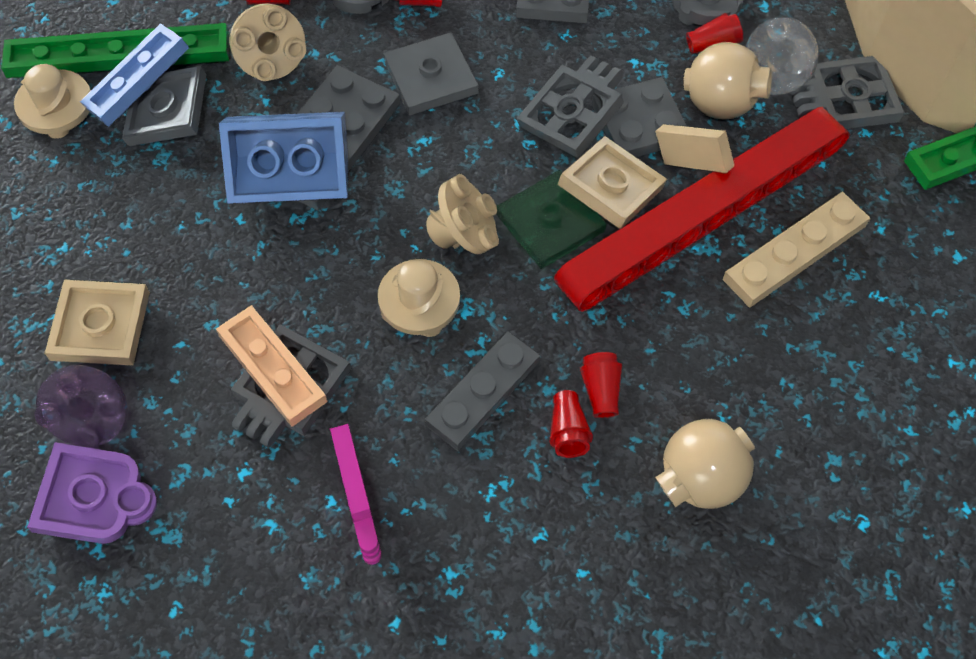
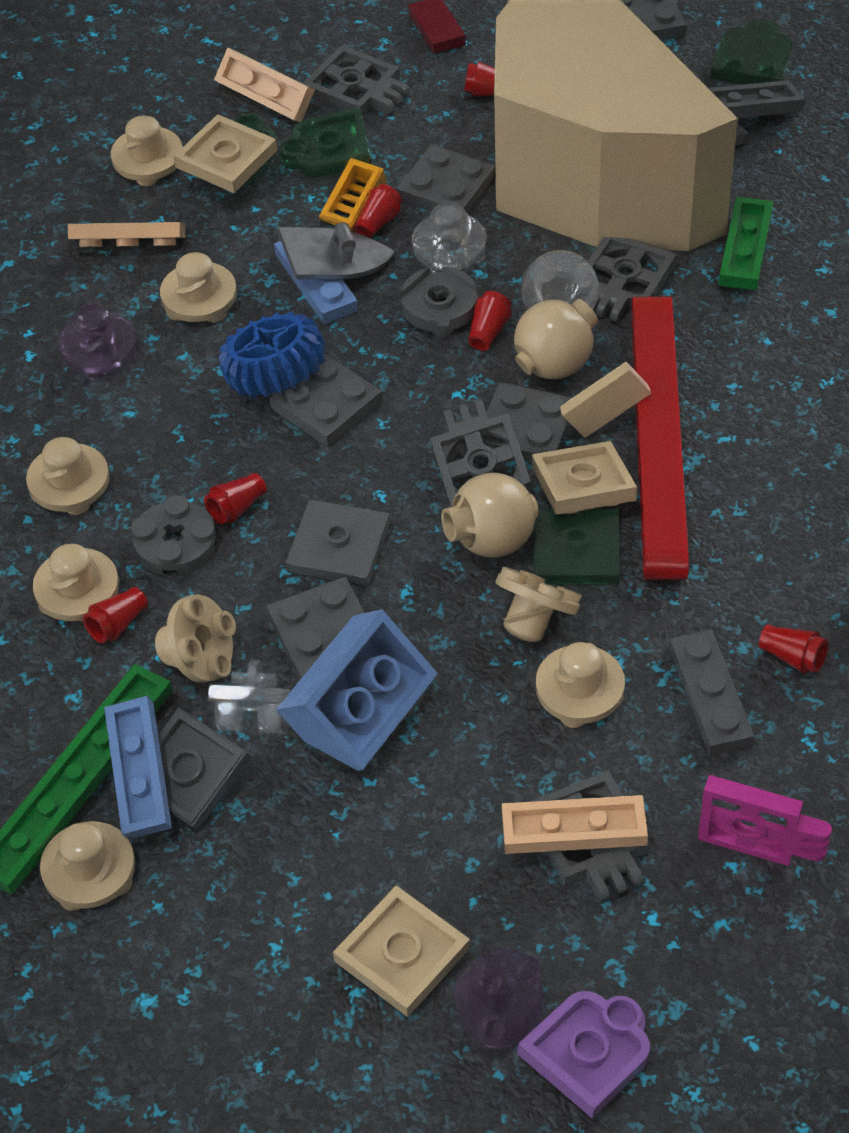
camera: 50 degrees left, 10 degrees down
(250, 101) = (232, 700): none -> clear hips
(515, 142) = (491, 515): none -> tan brick
(602, 381) = (772, 601): red cone -> none
(795, 249) = (744, 404): tan plate -> none

